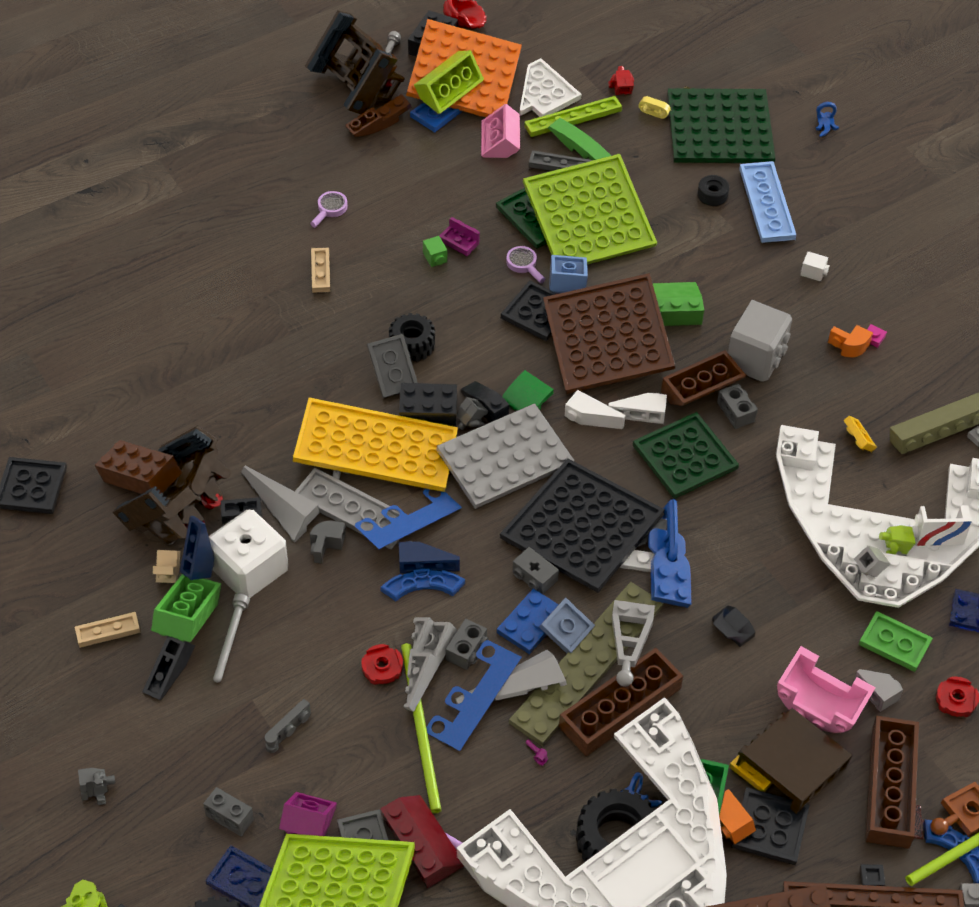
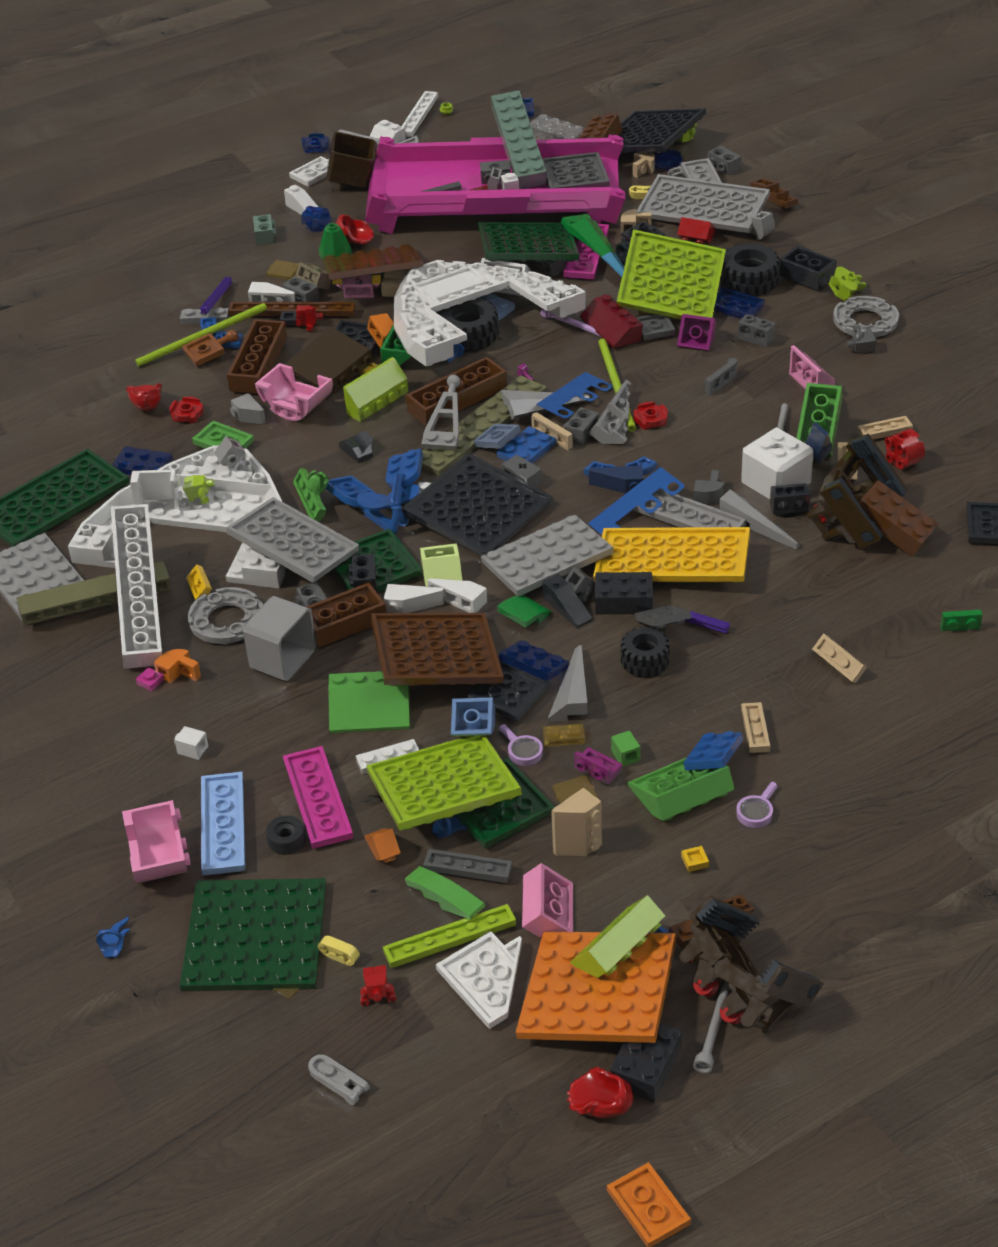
camera: 175 degrees left, 10 degrees down
(66, 816) = (888, 313): none -> light grey plate
(98, 576) = (904, 449): none -> red brick
(107, 367) = (961, 620): none -> green plate
(173, 717) = (806, 370): none -> bright pink slope
(232, 332) = (839, 658): none -> tan plate
(353, 381) = (708, 622): none -> dark purple axle
(360, 236) = (713, 750): none -> blue plate
(385, 164) = (695, 858): none -> yellow plate
(390, 219) = (678, 790): none -> bright green slope
(477, 166) = (577, 825): none -> tan slope
(482, 222) = (568, 788): none -> clear yellow piece
(482, 300) = (572, 693): none -> light grey wedge
(488, 272) = (563, 735): none -> clear yellow plate
(501, 636) = (563, 437): none -> tan plate
(516, 336) = (533, 660): none -> clear blue plate
(614, 443) = (441, 563): none -> yellowish green slope
(638, 178) = (383, 844): none -> orange slope
(640, 257) = (385, 753): none -> white plate
(641, 34) = (337, 1078): none -> light grey plate
(690, 421) = (363, 571): none -> black brick
(694, 221) = (317, 797): none -> dark pink plate
(723, 704) = (375, 390): none -> lime slope
(725, 545) = (357, 494): none -> blue plate
(766, 541) = (309, 489): none -> bright green plate
(772, 452) = (292, 539): none -> light grey plate
(808, 163) = (155, 842): none -> bright pink cylinder
(829, 378) = (229, 596): none -> light grey plate
(845, 872) = (307, 316): none -> red piece
(919, 400) = (136, 586): none -> white brick

